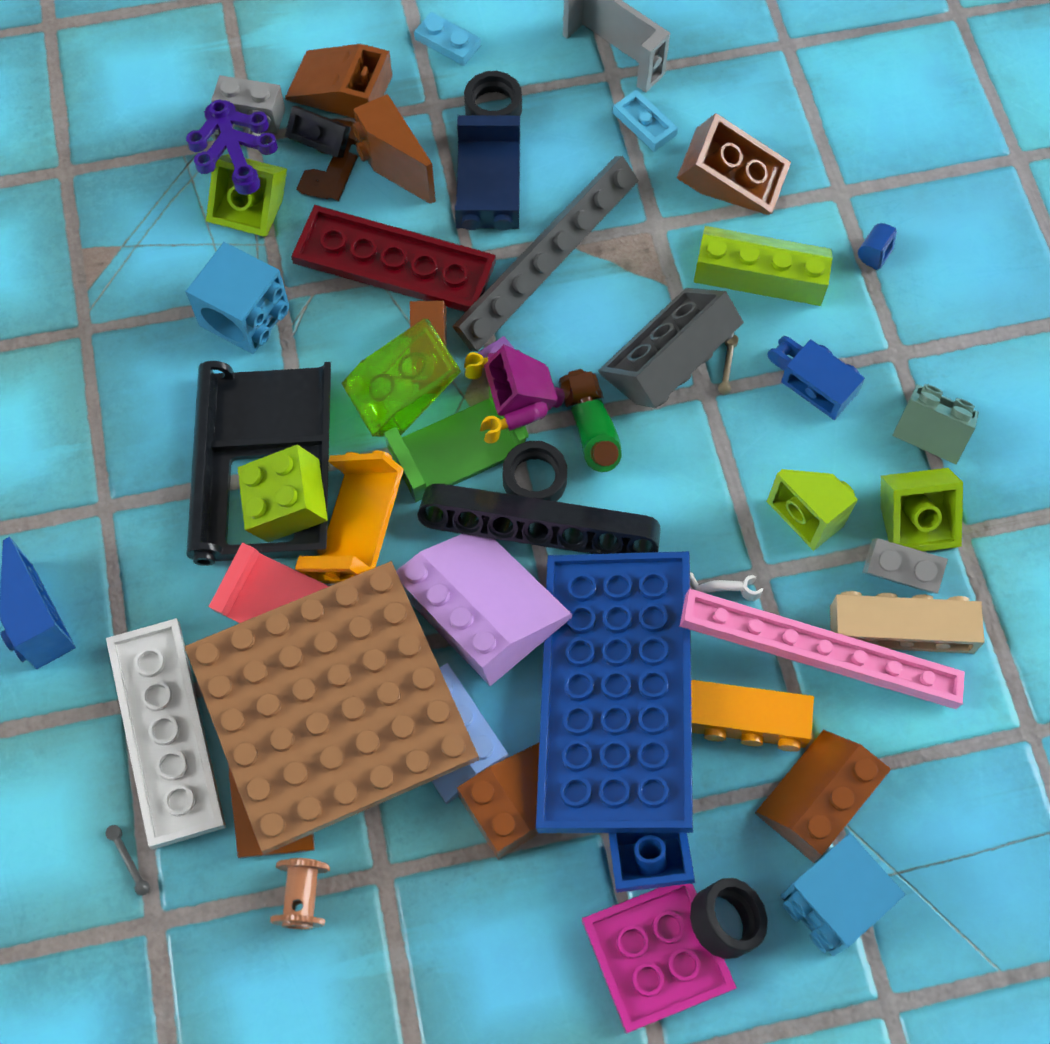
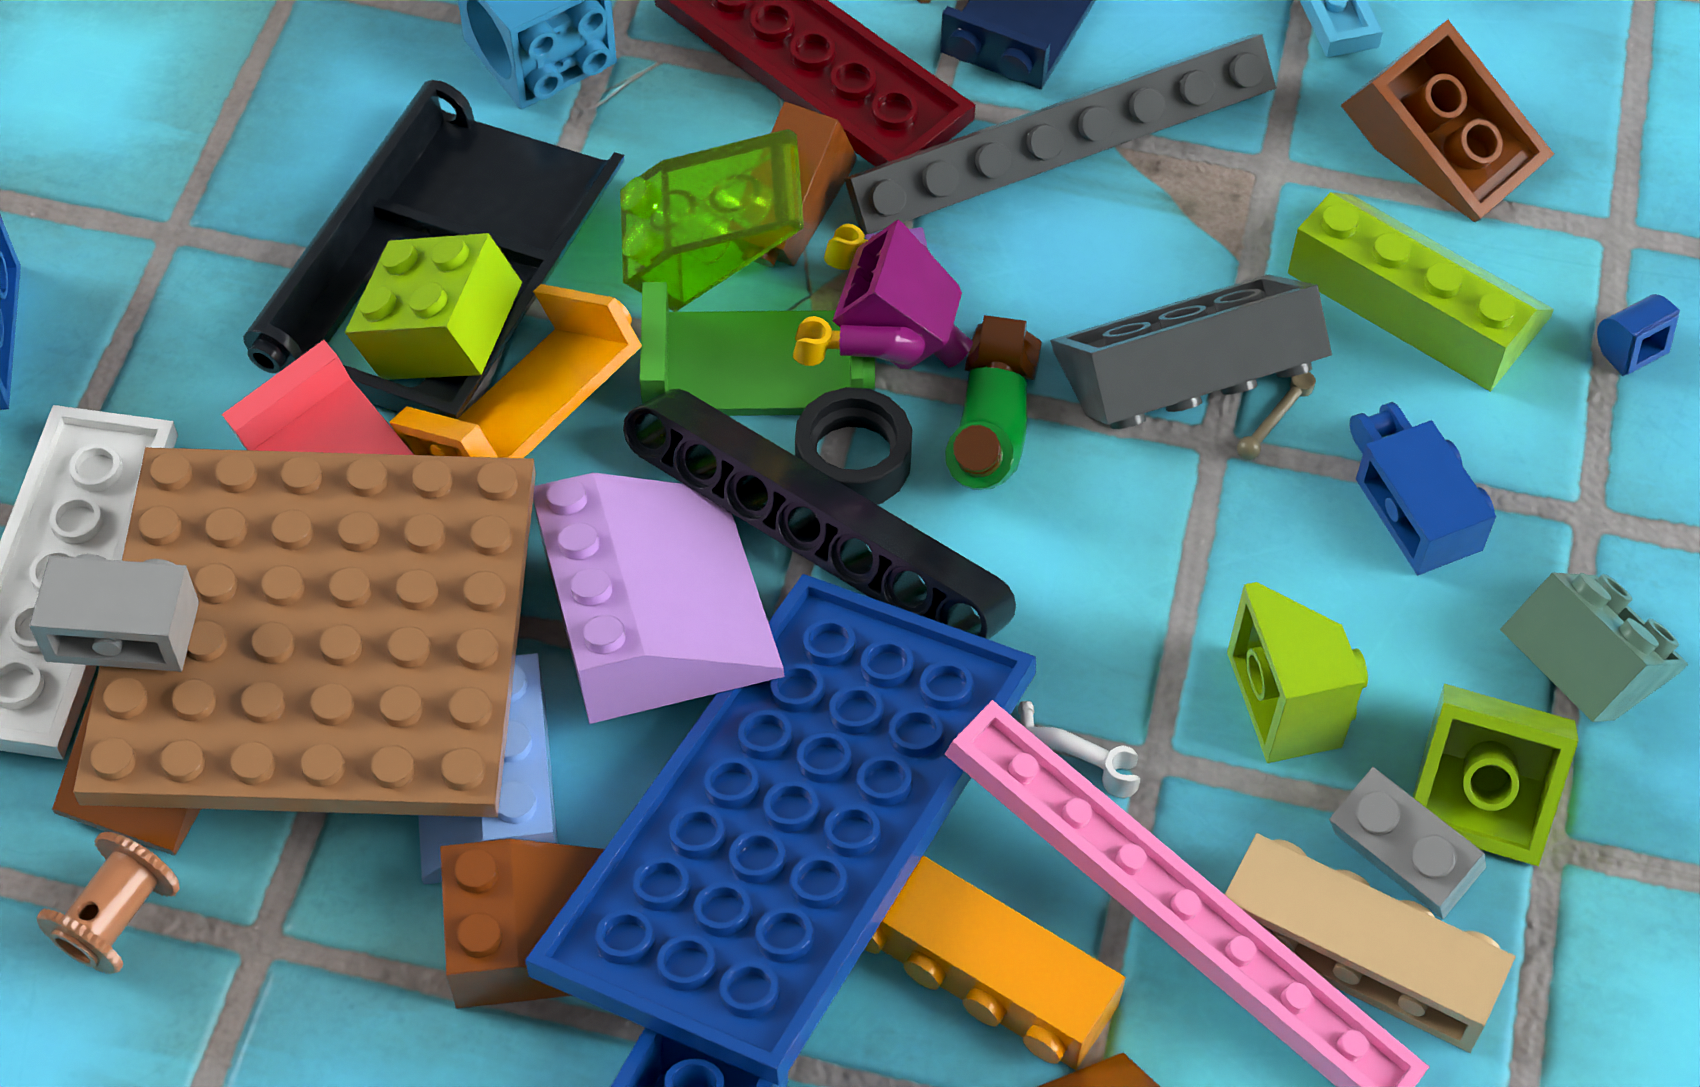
camera: 25 degrees right, 10 degrees down
(232, 748) = (115, 612): none -> light grey brick

